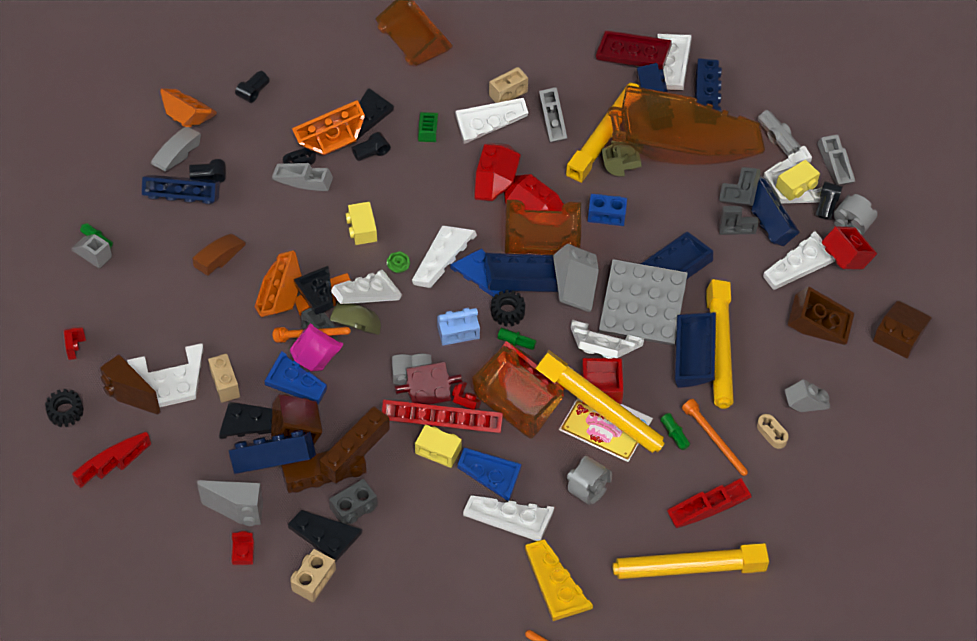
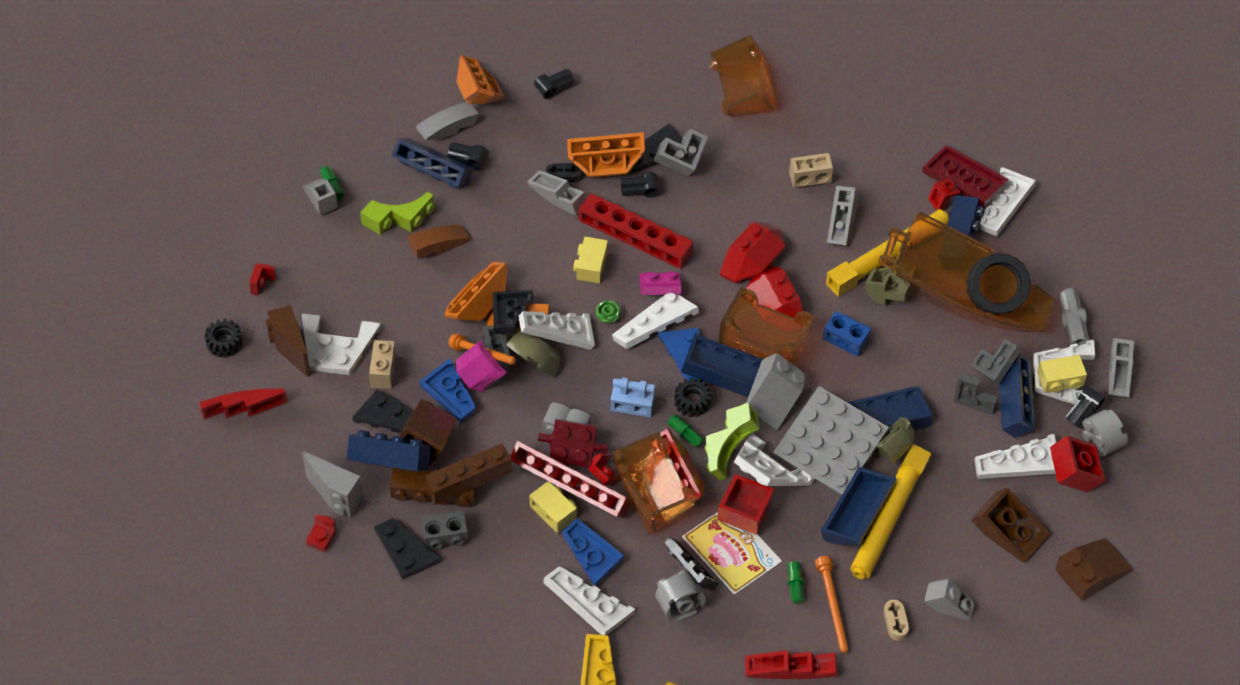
camera: 25 degrees right, 0 degrees up
(156, 250) = (408, 216): none -> lime arch
(317, 576) = (375, 586): tan brick -> none
(387, 186) = (636, 231): none -> red brick
(396, 109) = (682, 156): none -> light grey brick
(425, 122) = (703, 193): green slope -> none
(430, 223) = (660, 283): none -> dark pink plate
(487, 118) = (775, 196): white wing -> none
(559, 371) = (697, 474): yellow brick -> none
(563, 315) = (720, 445): none -> lime arch
(581, 450) = (690, 564): none -> black wing
(623, 70) = (941, 193): none -> red bracket
(699, 281) = (898, 440): none -> olive brick
(707, 83) = (1027, 236): dark blue brick -> none
(731, 114) = (1020, 272): none -> black tyre

